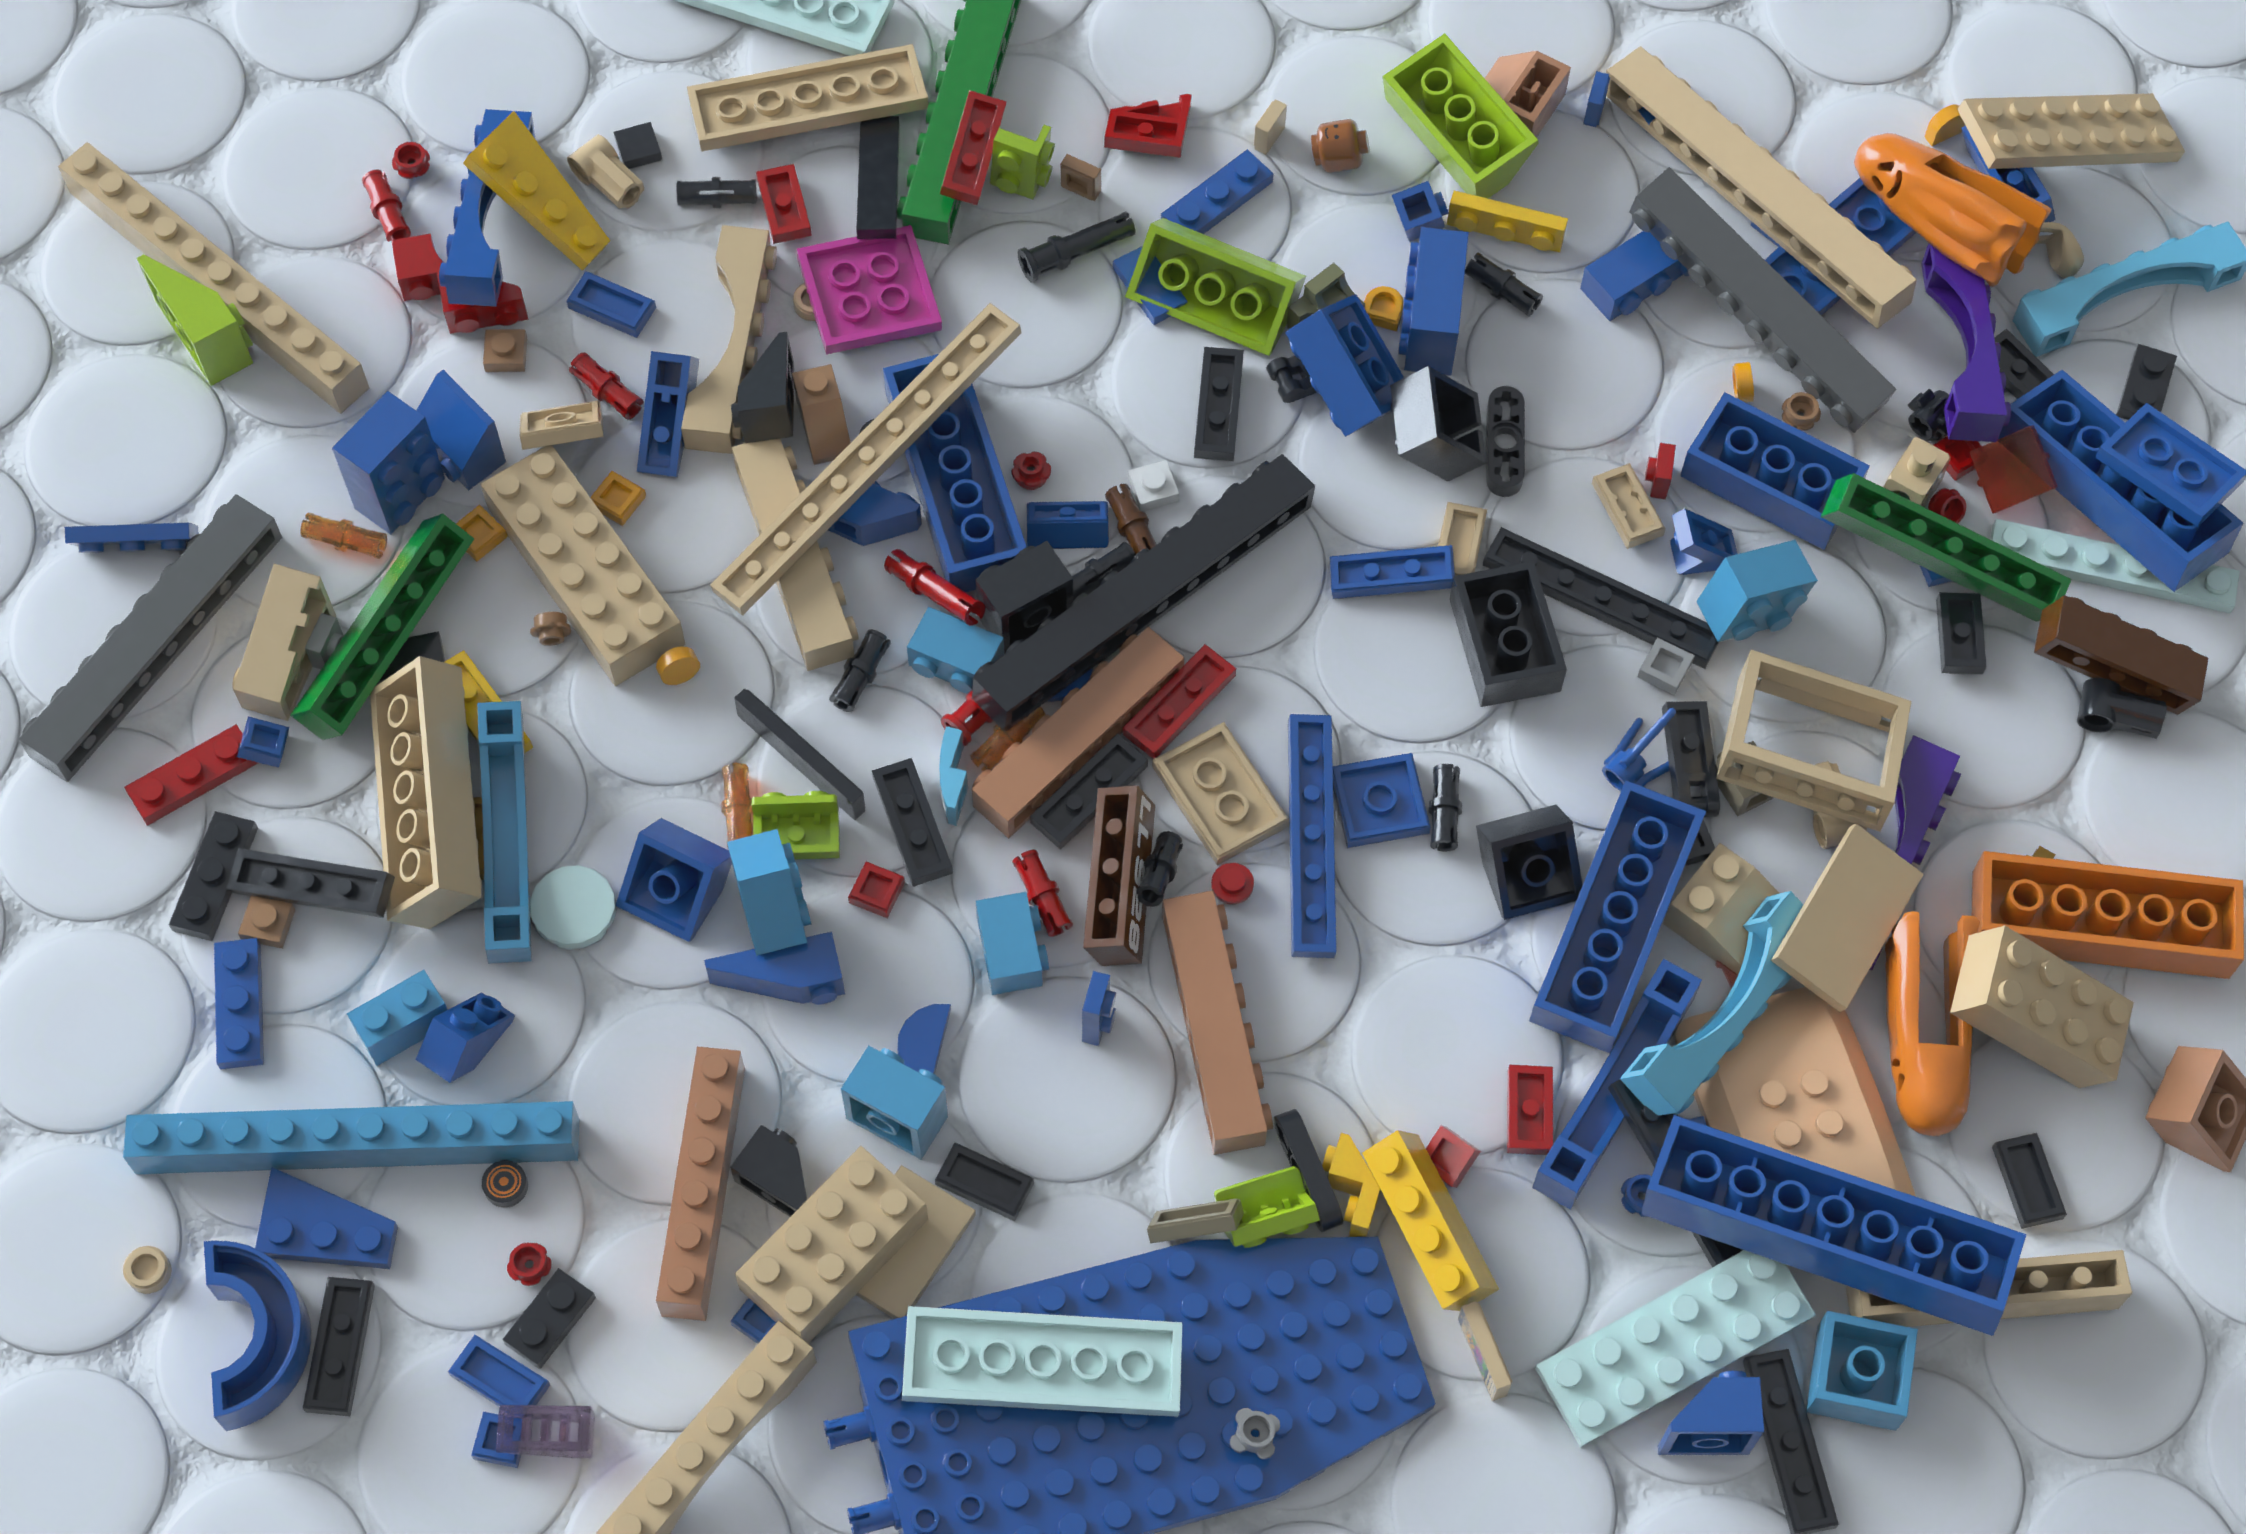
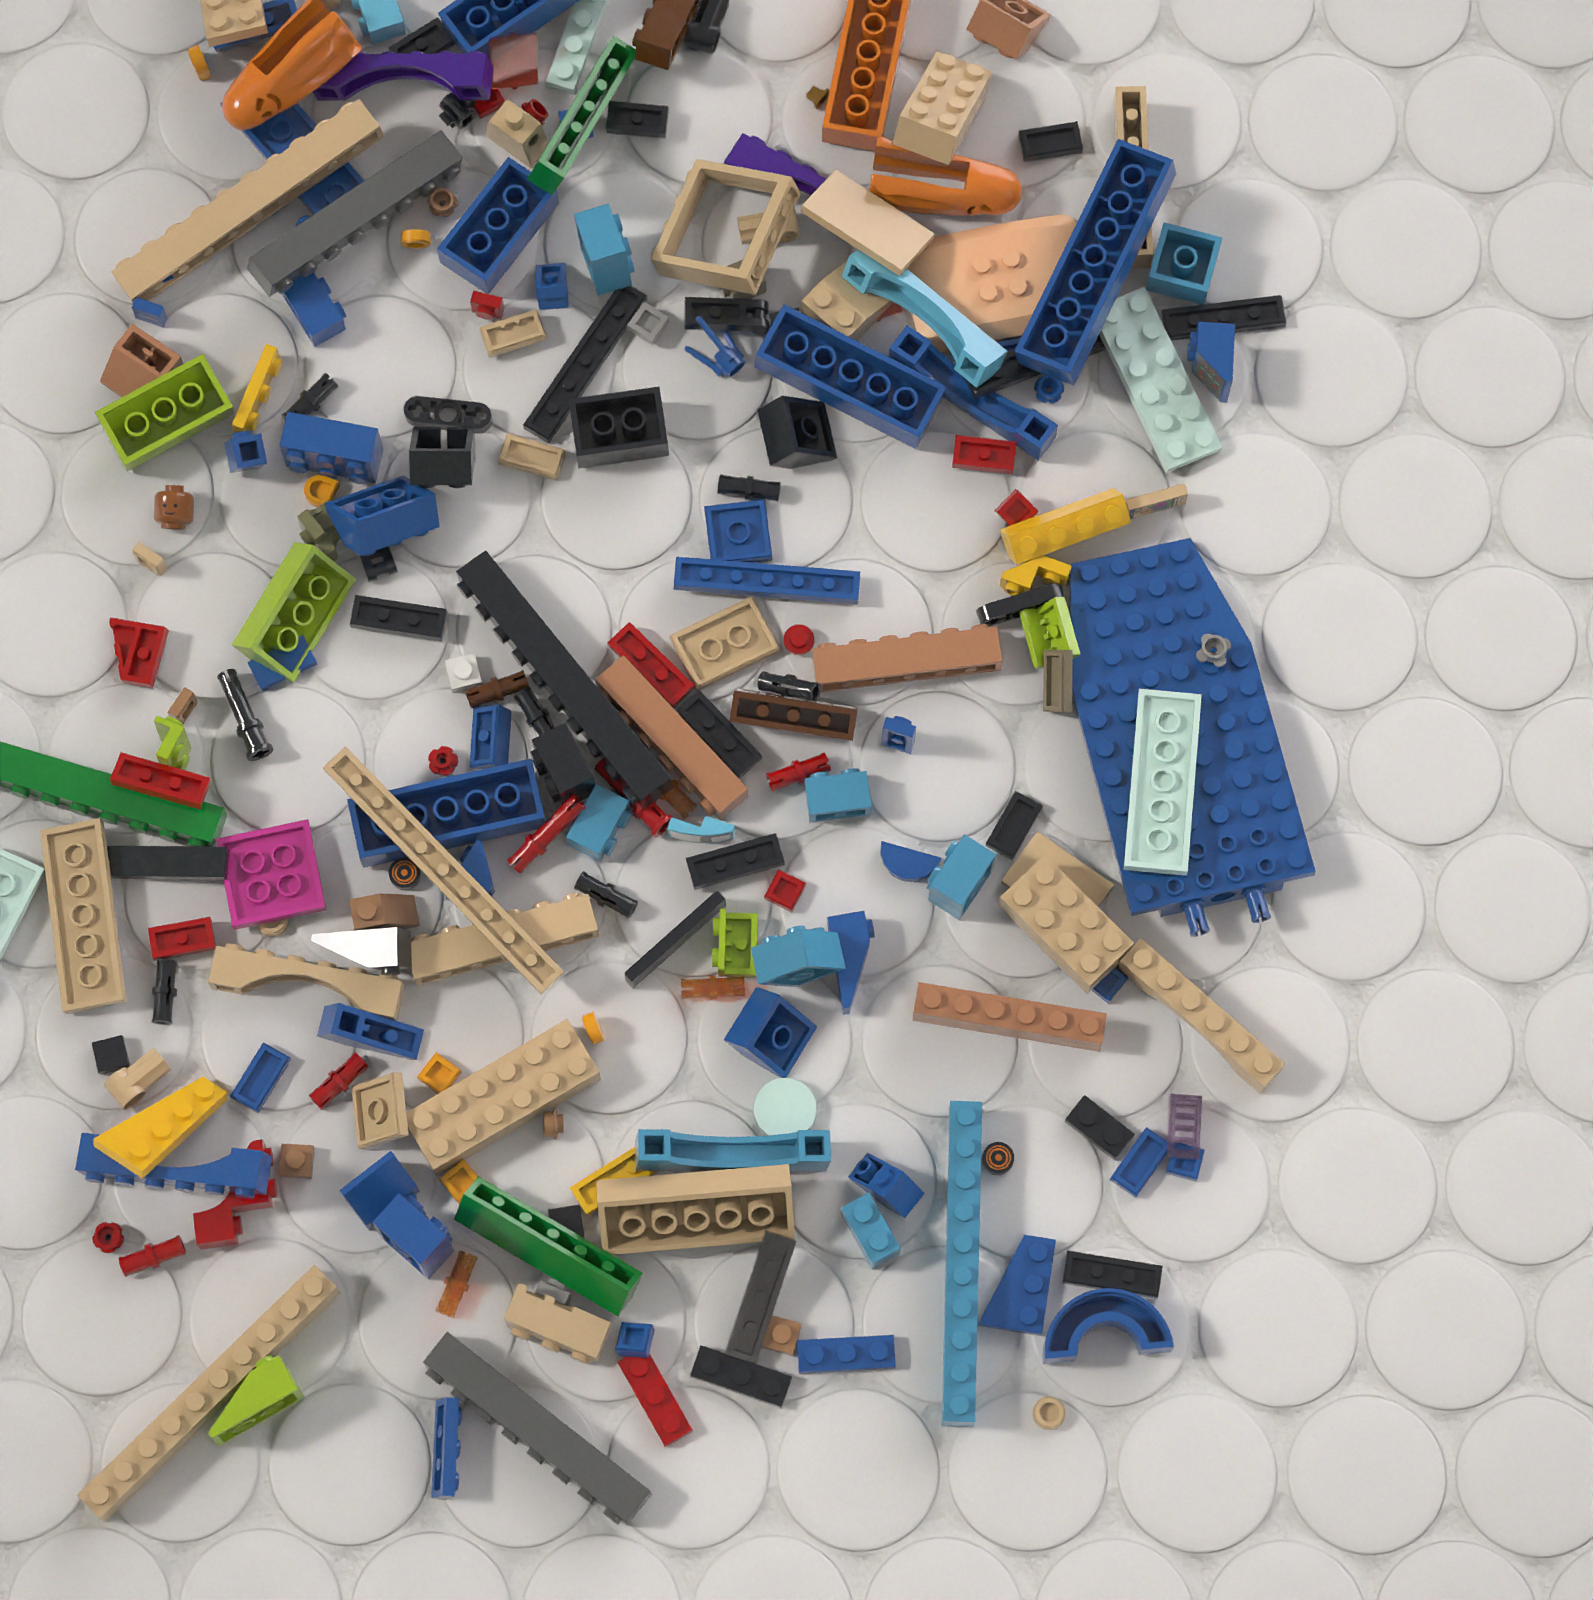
camera: 85 degrees left, 10 degrees up
(524, 1253) = (1051, 1140): red plate -> none
(772, 1170) = (1003, 965): black slope -> none
(1221, 194) = (206, 605): blue plate -> none
(1392, 572) = (555, 505): blue tile -> none

